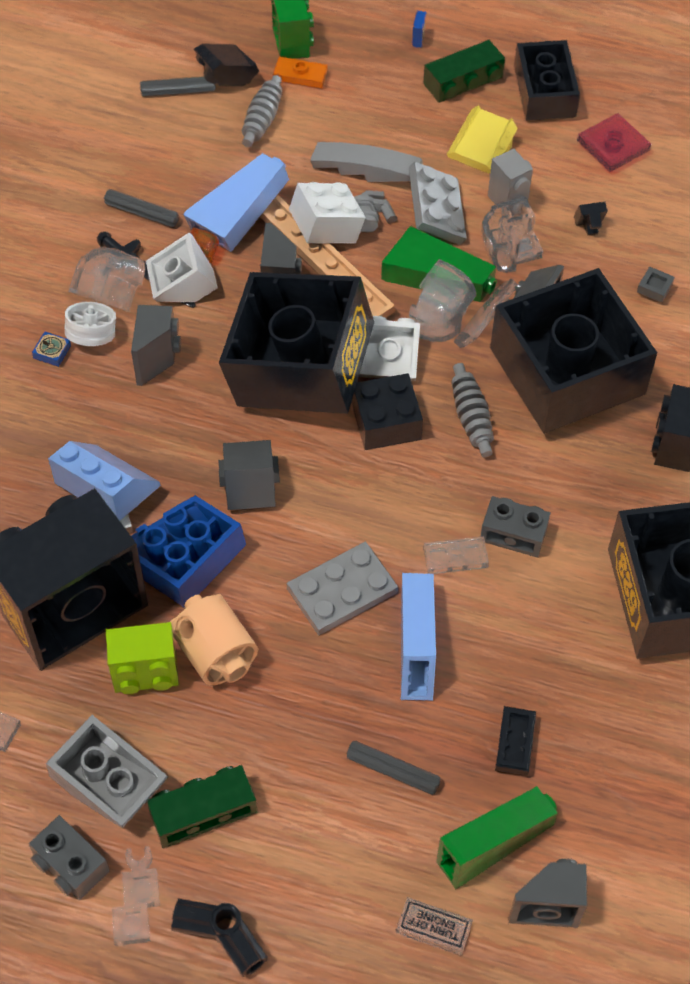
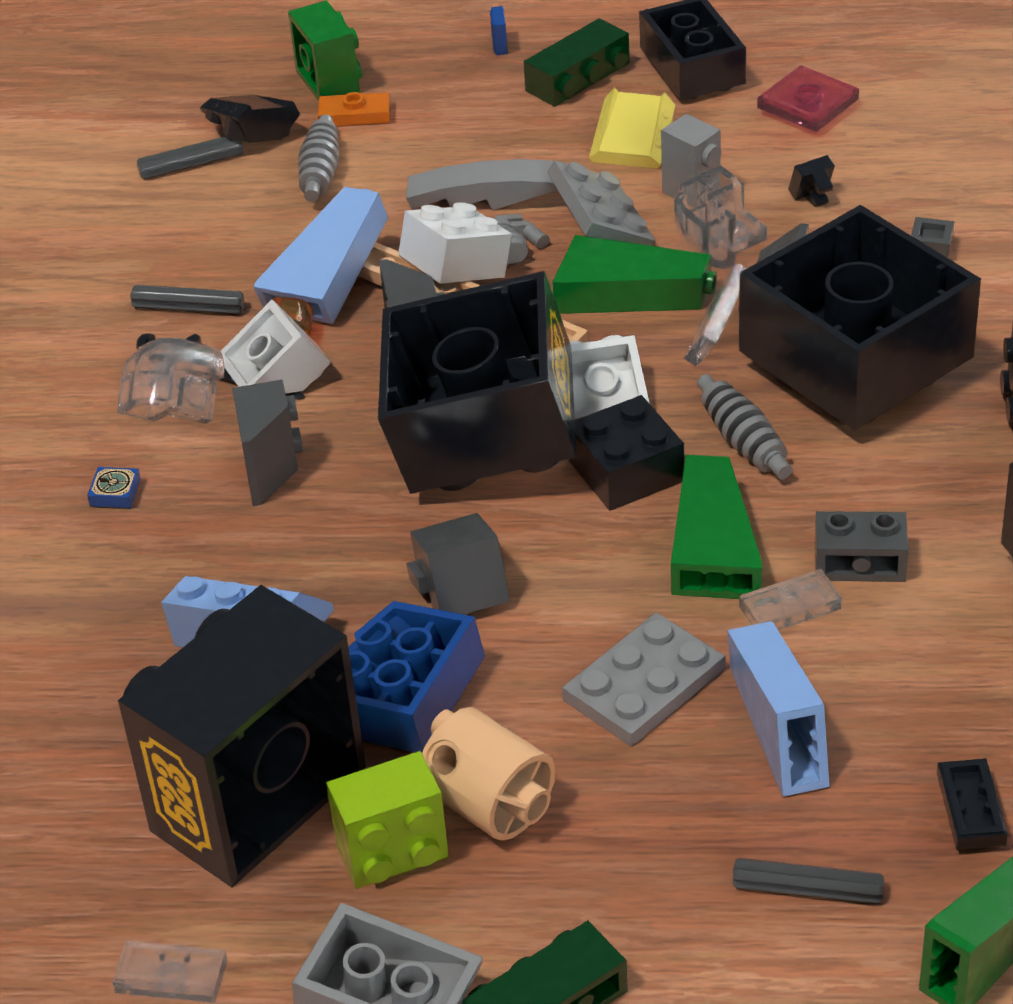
camera: 10 degrees left, 15 degrees down
(90, 323) = (162, 440): white wheel -> none
(420, 492) = (713, 535): none -> green slope
(442, 302) = (656, 307): clear brick -> none

